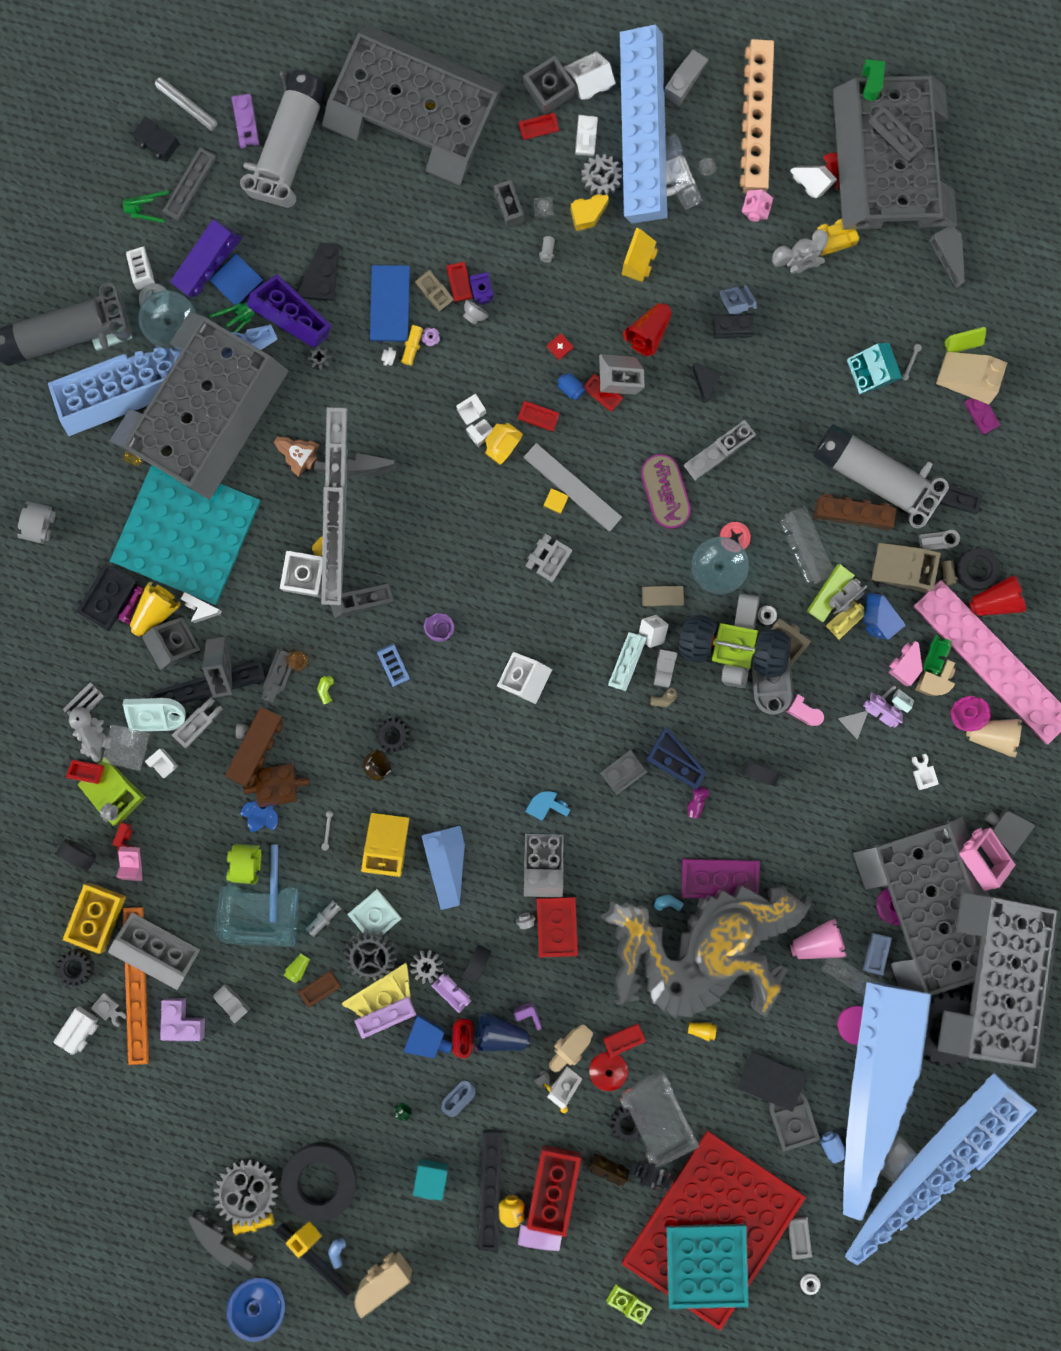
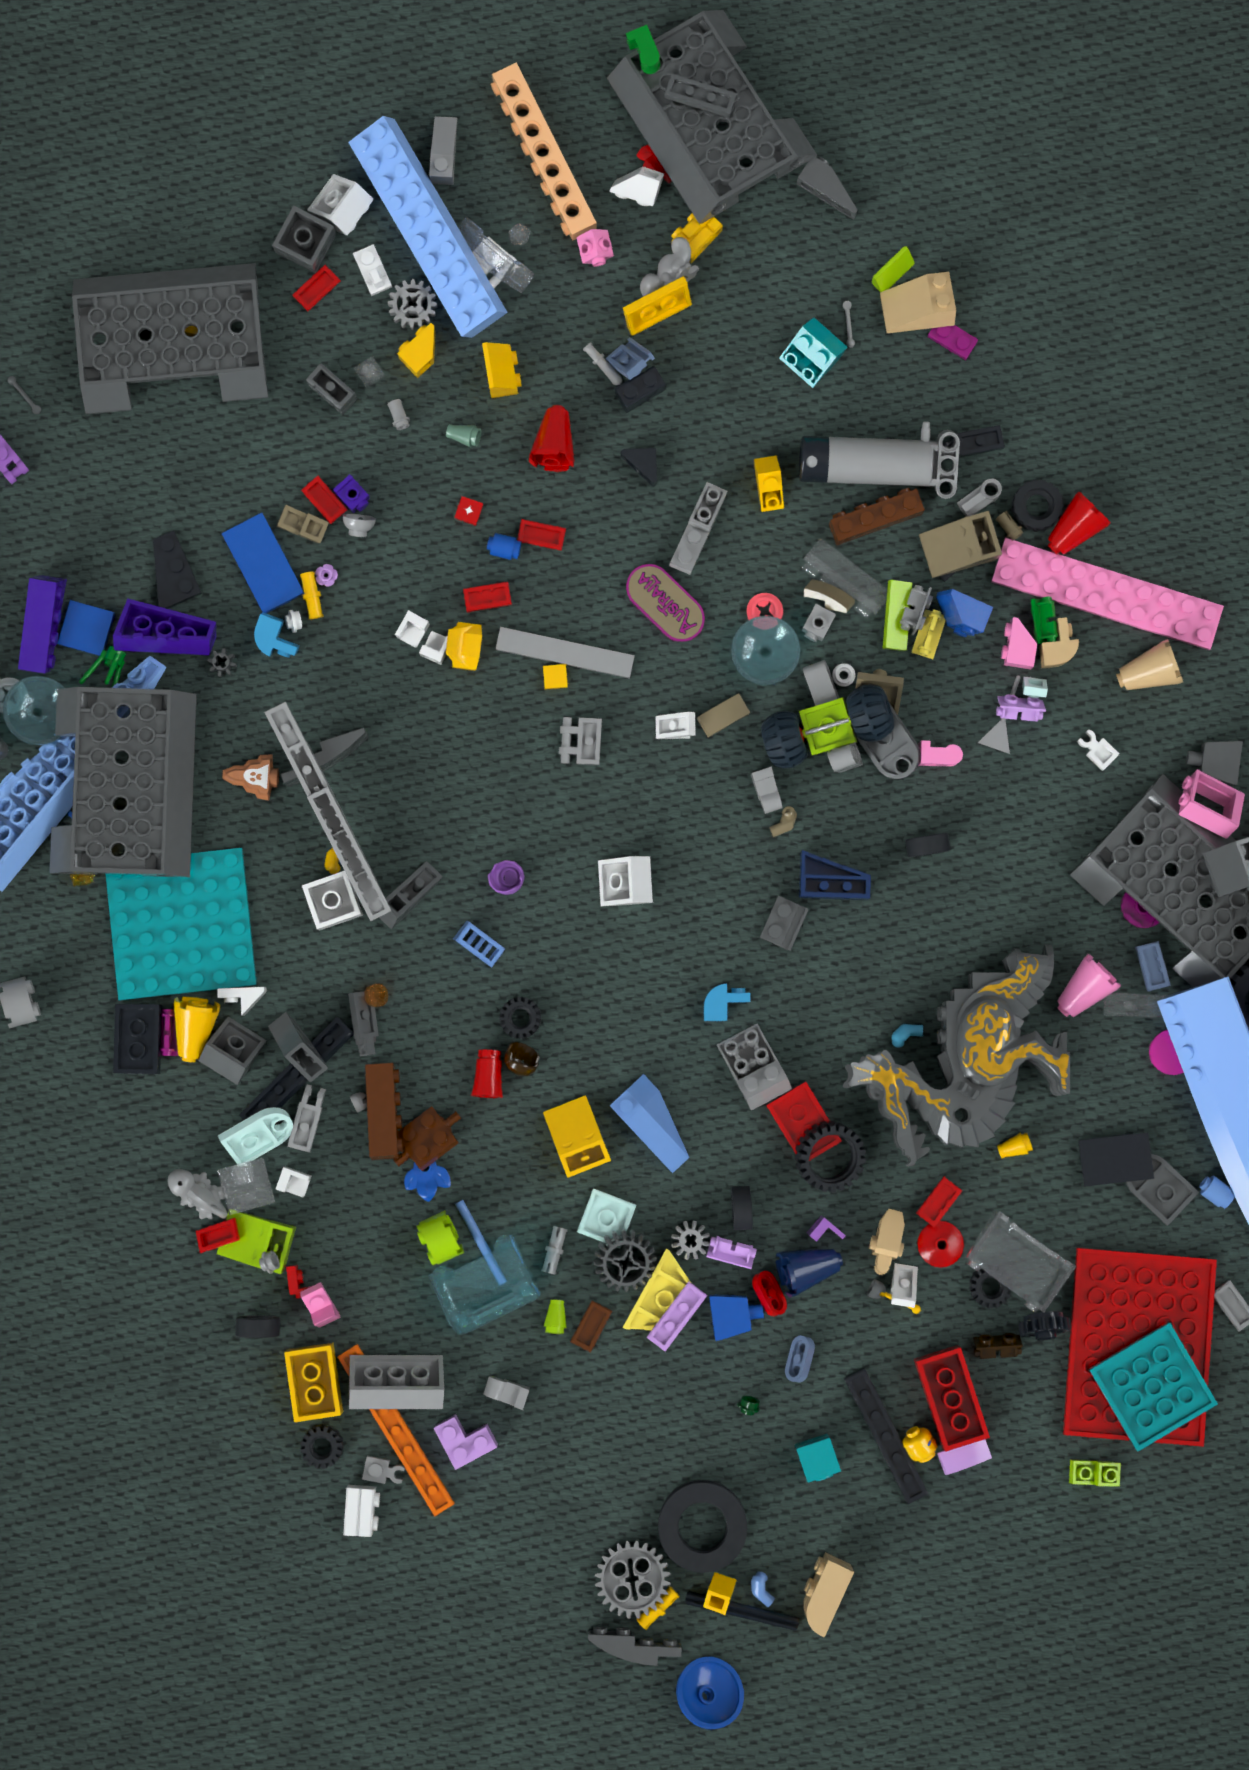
camera: 25 degrees left, 0 degrees up
(95, 690) = (171, 1143): light grey tile -> none
(286, 141) = (58, 451): light grey piece -> none
(324, 684) = (419, 1008): lime arm -> none
(325, 846) = (513, 1173): light grey hinge -> none
(346, 763) = (488, 1075): none -> red plant
(363, 357) = (267, 636): none -> dark azure brick
(525, 921) = (767, 1135): light grey plate -> none
(569, 982) = (845, 1177): none -> black tyre
(587, 289) = (465, 434): none -> sand green cone
(620, 374) = (550, 505): light grey slope -> none
(623, 584) = (675, 726): none -> white slope
(627, 661) = (723, 804): light aqua tile -> none
(654, 630) = (733, 757): white panel -> none
(697, 803) = (879, 913): magenta arm -> none
(708, 876) = (931, 983): magenta tile -> none
(718, 304) = (599, 359): none -> light grey piece
(769, 567) = (818, 623): none -> light grey brick
(779, 272) = (657, 306): none -> yellow tile
(789, 445) = (769, 483): none -> yellow slope
(791, 555) = (834, 598): none -> dark tan slope
(970, 713) = (1112, 661): dark pink tile -> none

